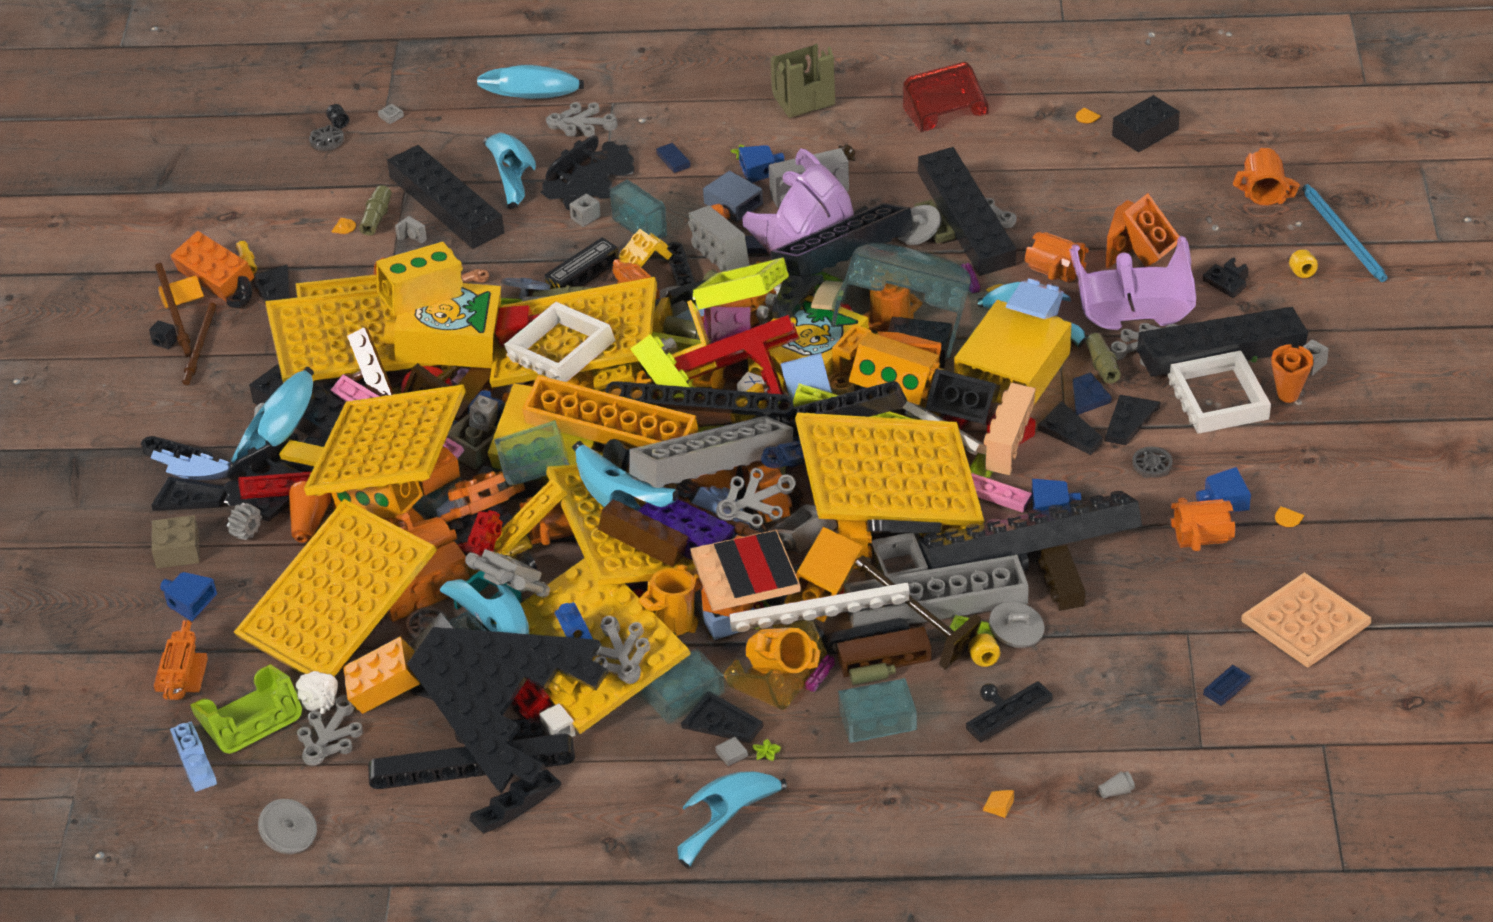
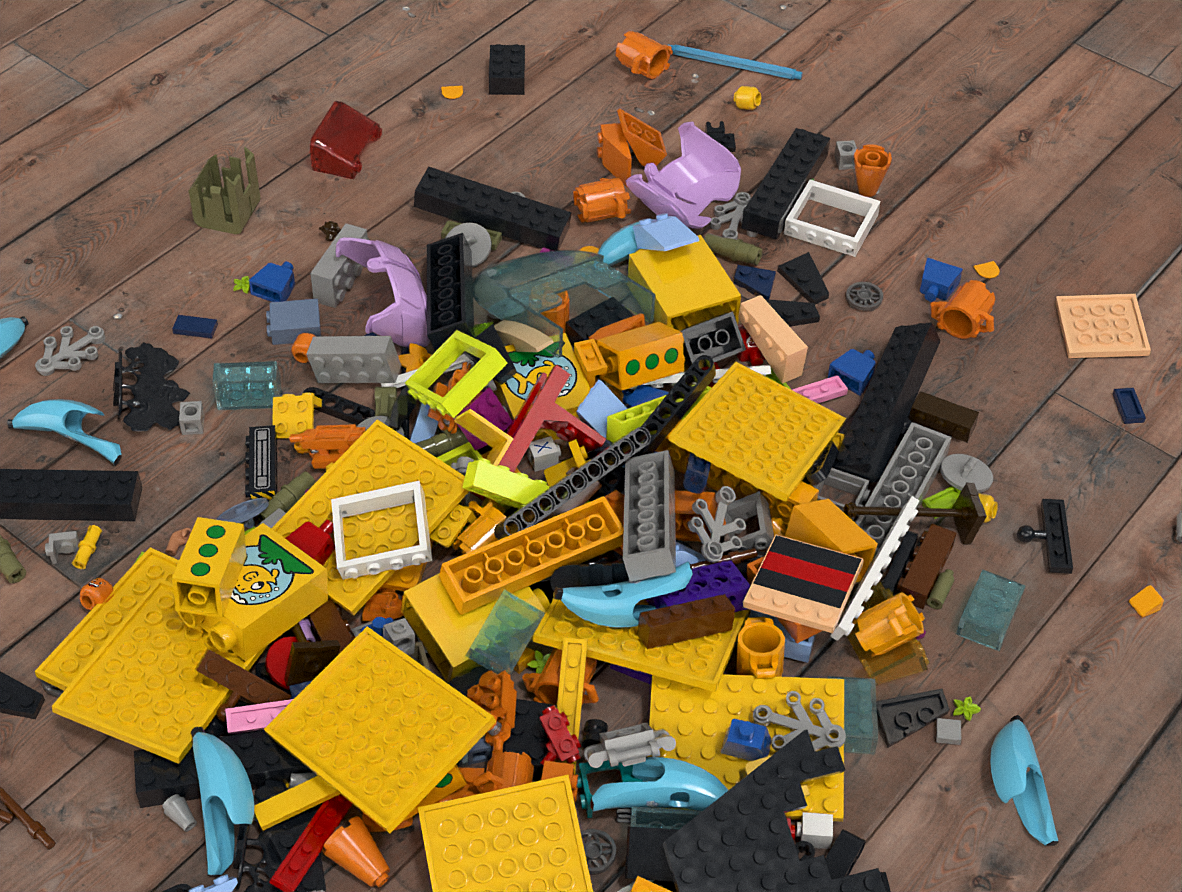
camera: 55 degrees left, 5 degrees up
(424, 240) = (87, 547): none -> yellow pin

